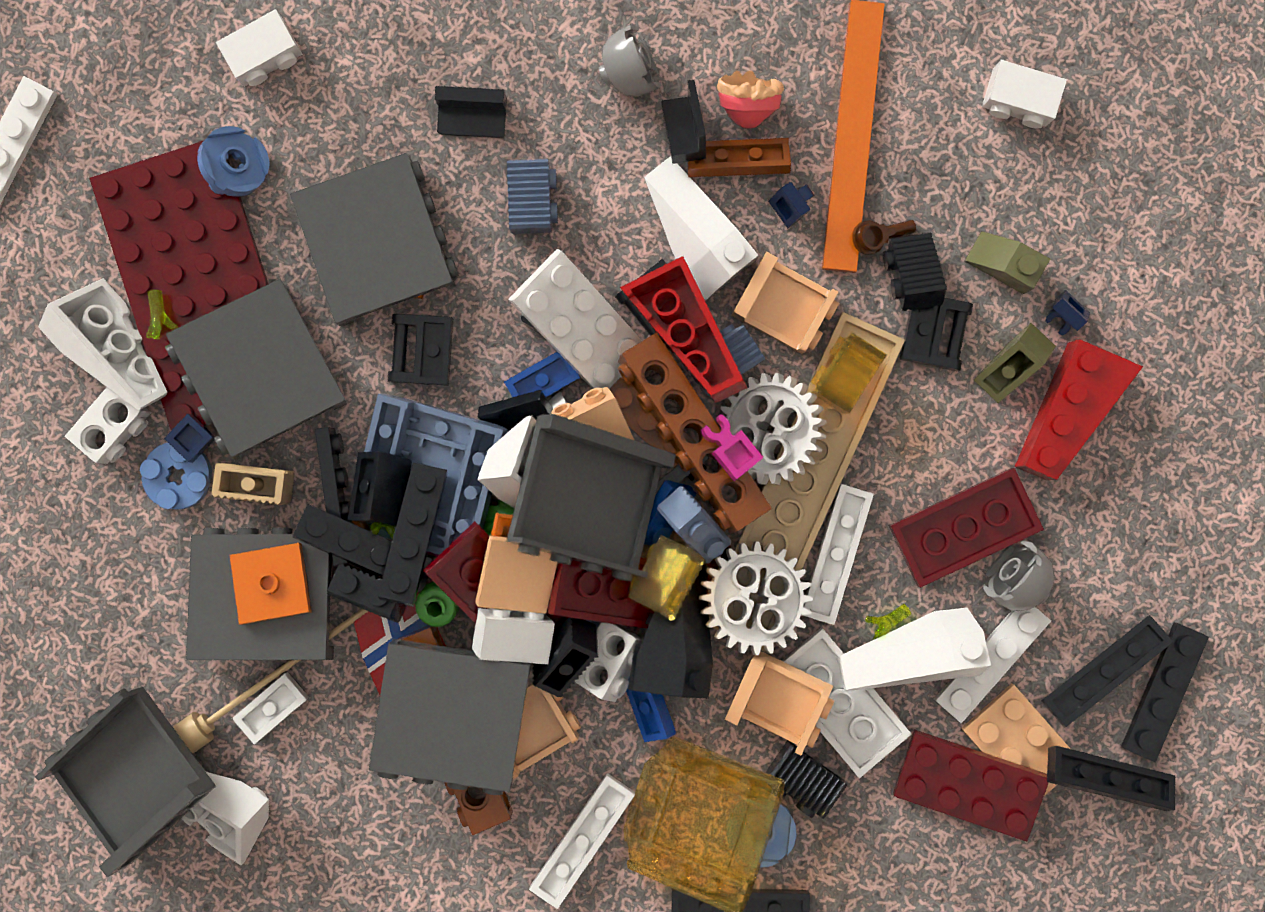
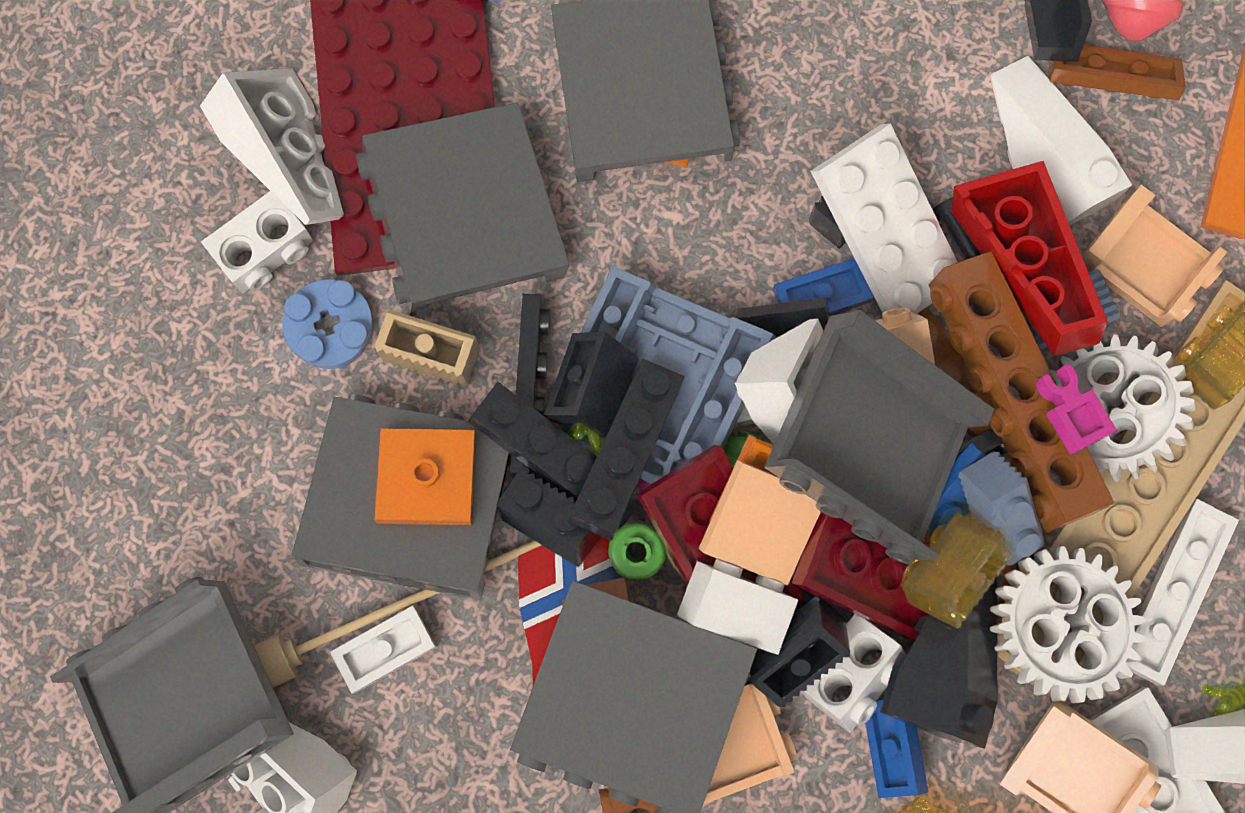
camera: 10 degrees right, 10 degrees down
(157, 315) = (353, 116): clear neon green bar -> none
(190, 438) = (360, 275): dark blue tile -> none
(431, 349) = (687, 229): black plate -> none
(530, 196) = (847, 68): sand blue brick -> none
(791, 203) = (1175, 136): dark blue tile -> none

